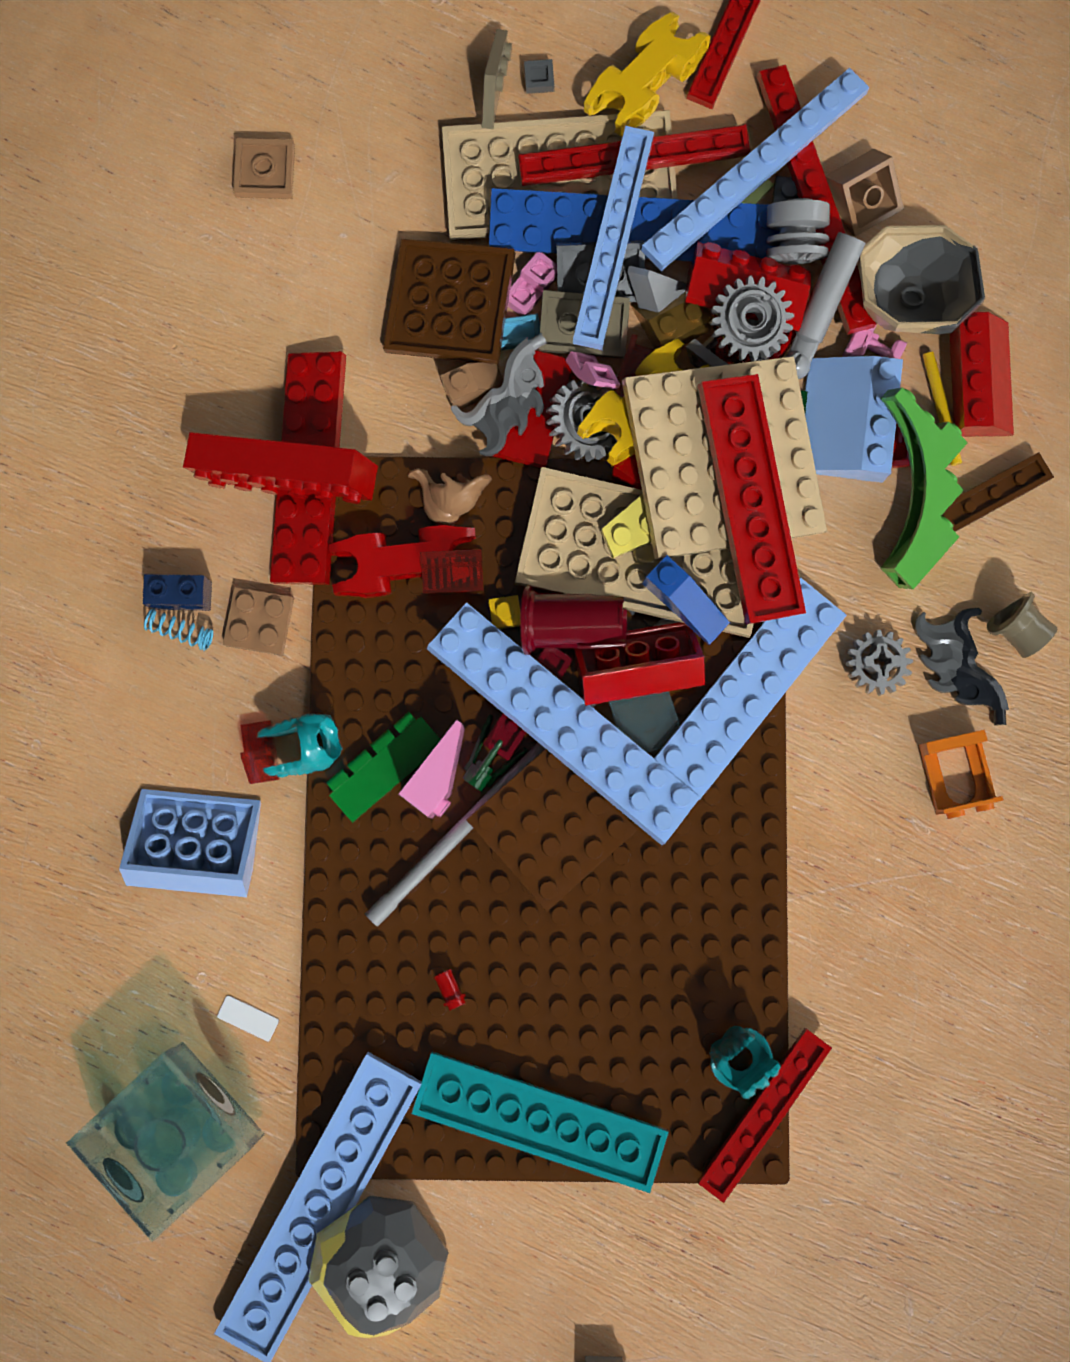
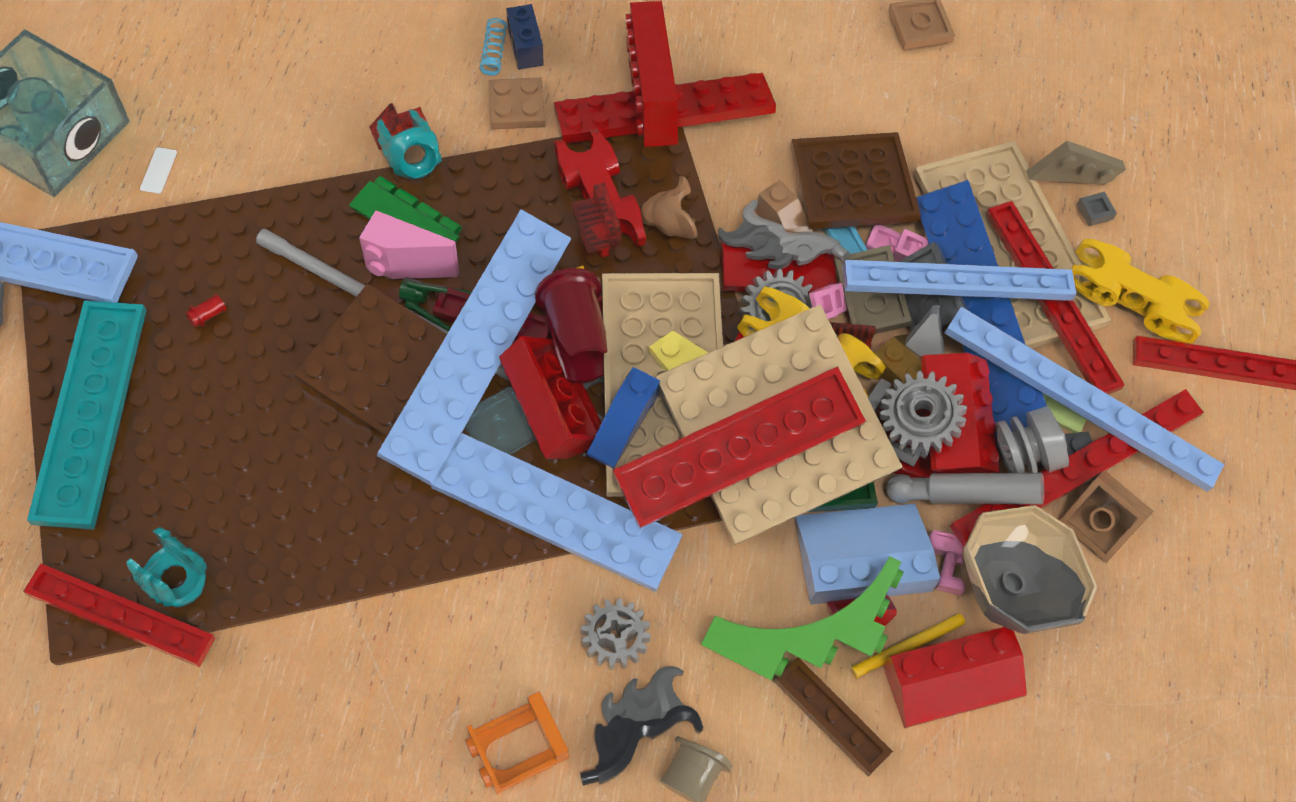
camera: 70 degrees right, 20 degrees down
(191, 843) = (306, 93): light blue slope -> none

